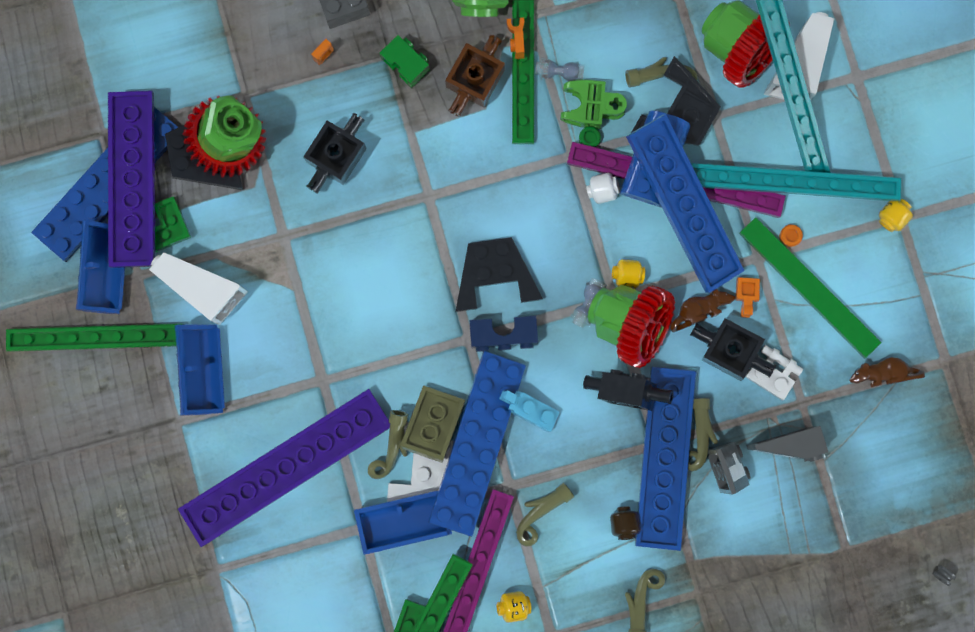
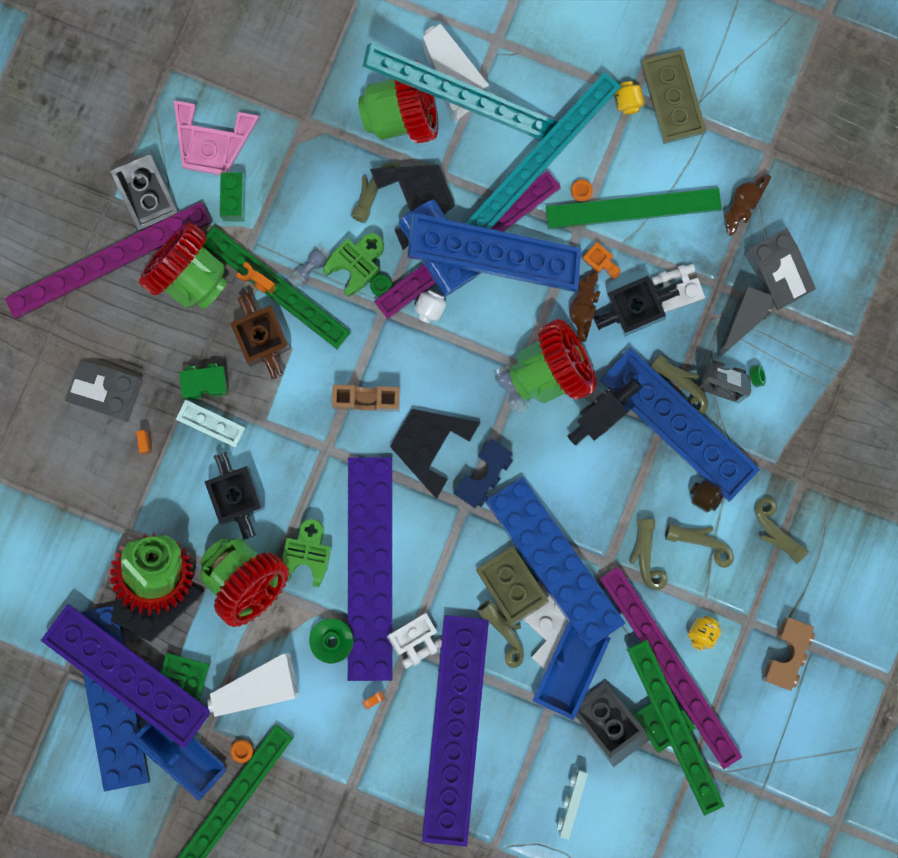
camera: 50 degrees left, 0 degrees up
(142, 314) = (242, 751): none -> orange tile
(199, 369) = (324, 738): blue container -> none
(258, 384) = (373, 700): none -> orange tile
(271, 311) = (320, 640): none -> green dish
(272, 209) = (242, 580): none -> red piece
(297, 604) = (571, 803): none -> light aqua plate
(334, 375) = (412, 634): none -> white plate
(342, 239) = (316, 563): none -> bright green piece
(360, 303) = (370, 568): none -> dark purple plate
(377, 91) = (210, 423): none -> light aqua plate
(383, 587) = (610, 724): none -> dark grey slope
(490, 195) = (366, 399): none -> medium nougat arch
(530, 409) = (560, 500): medium azure hinge -> none
(587, 542) = (698, 537): none -> olive plant
(628, 273) = (513, 339): yellow head -> none
(754, 490) = (757, 375): none -> green tile
(856, 442) = (781, 269): none -> dark grey slope
(925, 249) = (673, 96): none -> olive plate

